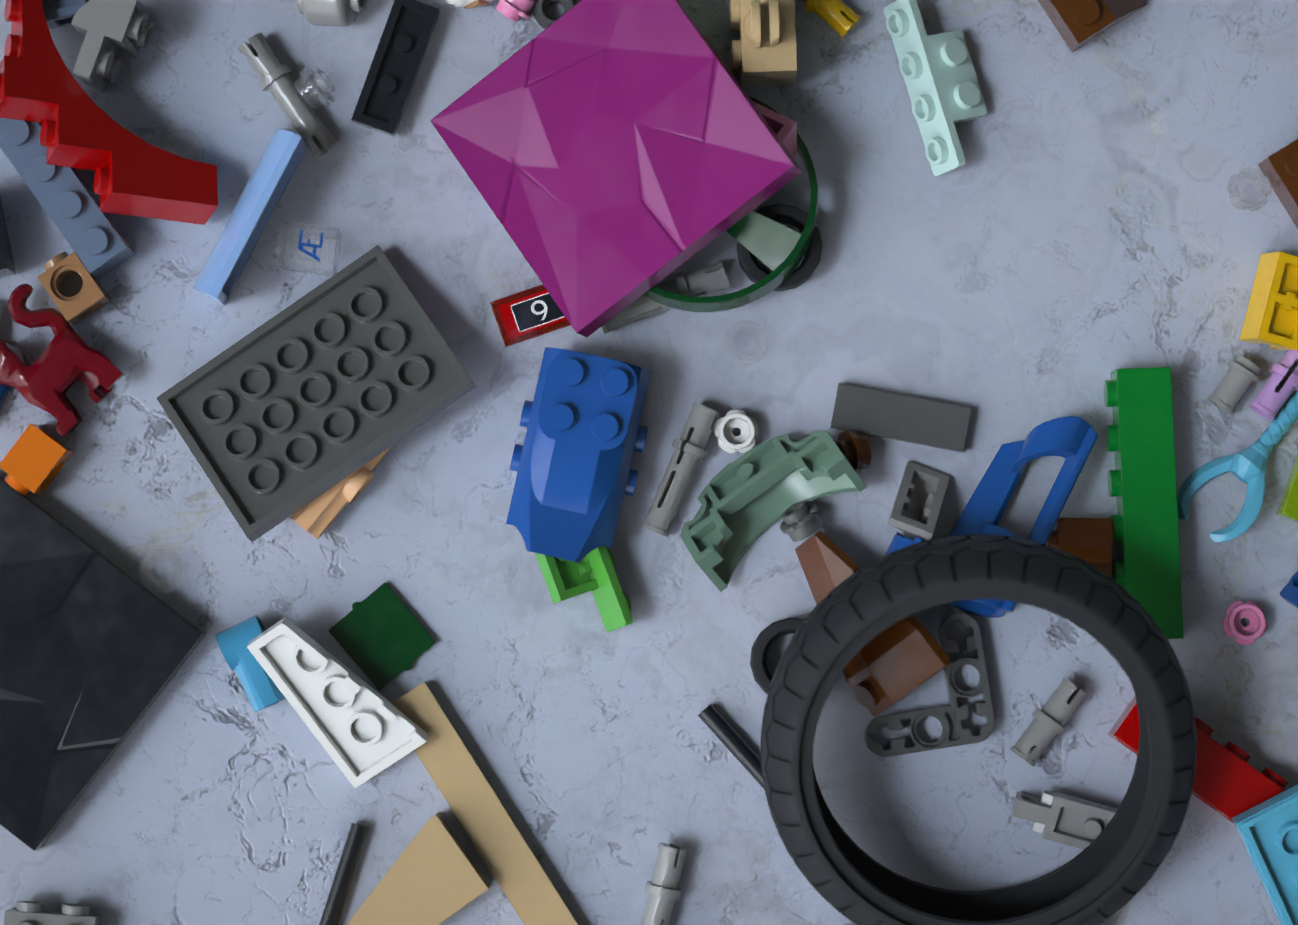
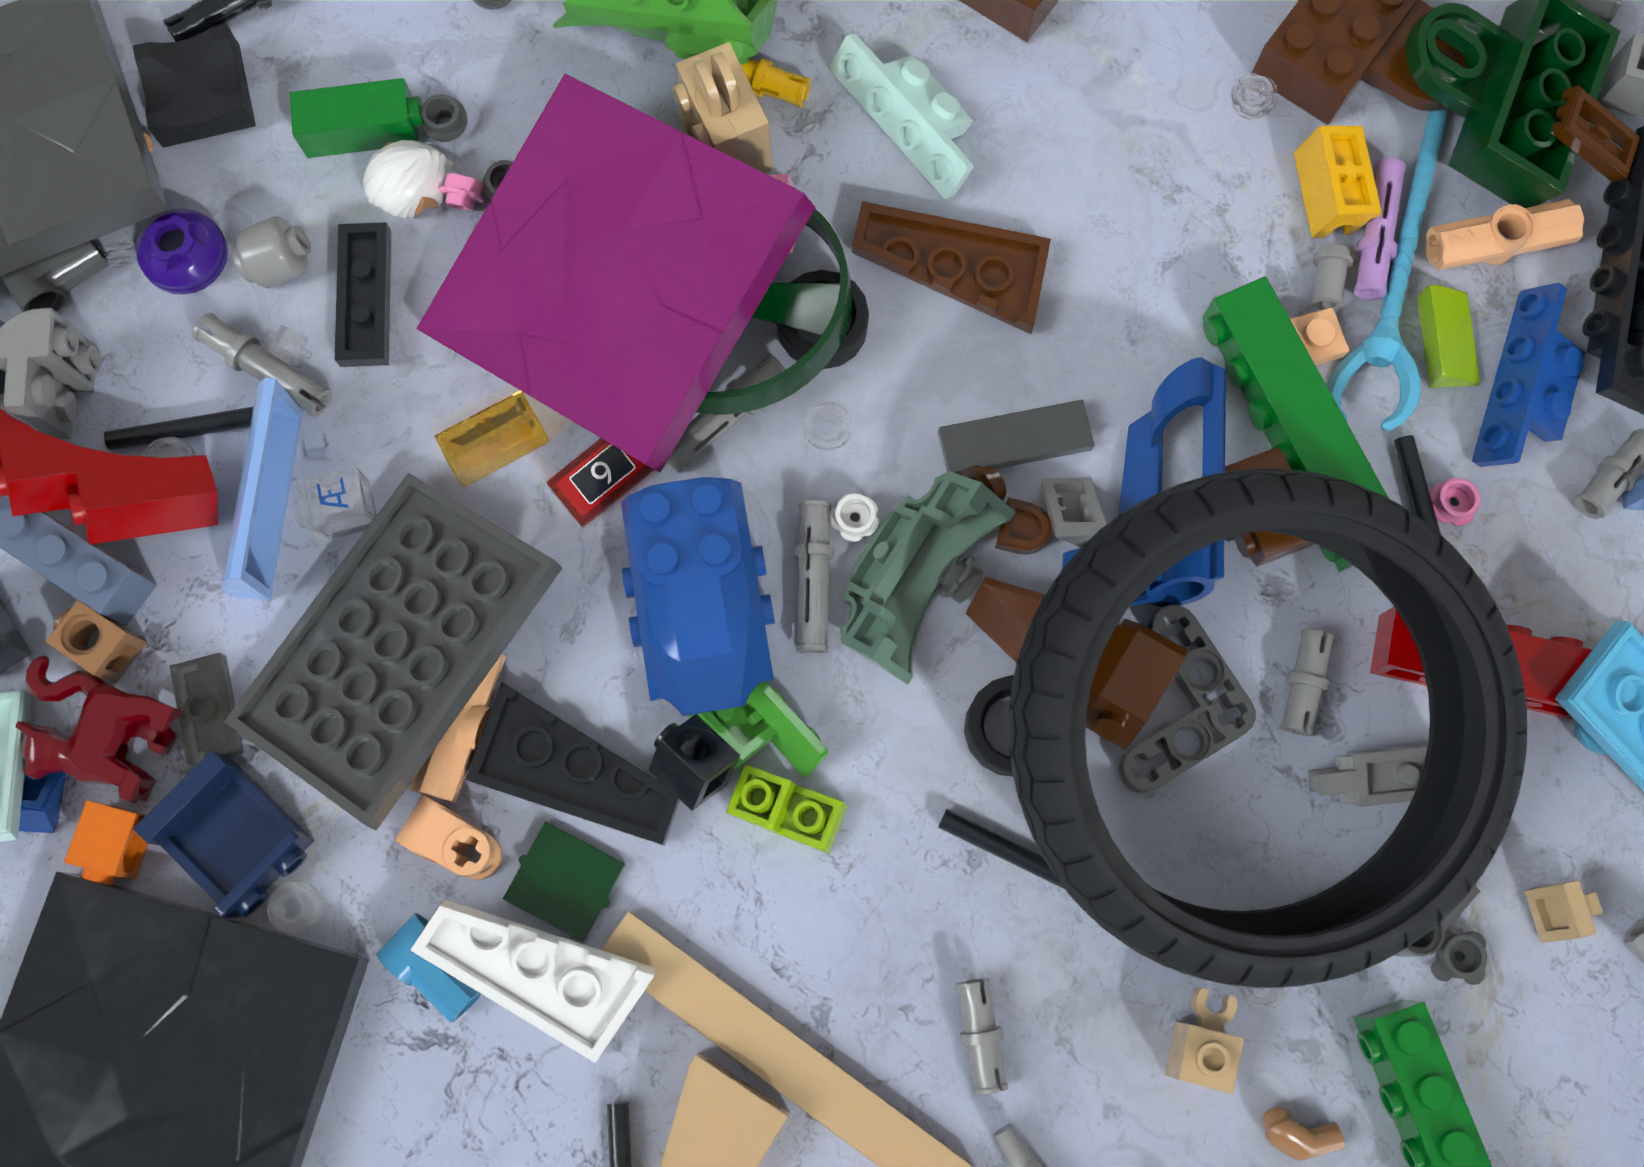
camera: 25 degrees left, 10 degrees down
(129, 493) = (226, 835): none -> dark blue panel
(145, 378) = (205, 701): none -> clear smoke plate
(200, 124) = (178, 428): none -> black bar
(298, 562) = (443, 838): none -> light nougat piece
(412, 544) = (558, 767): none -> black wing
(457, 238) = (491, 438): none -> clear yellow slope
(513, 599) = (693, 761): none -> black brick
(582, 651) = (786, 809): none -> lime slope
(874, 501) = (1026, 530): none -> reddish brown tile
(925, 244) = (963, 260): none -> reddish brown wing
(1197, 432) = (1321, 335): none -> light nougat plate
(1216, 616) = (1415, 480): none -> black bar

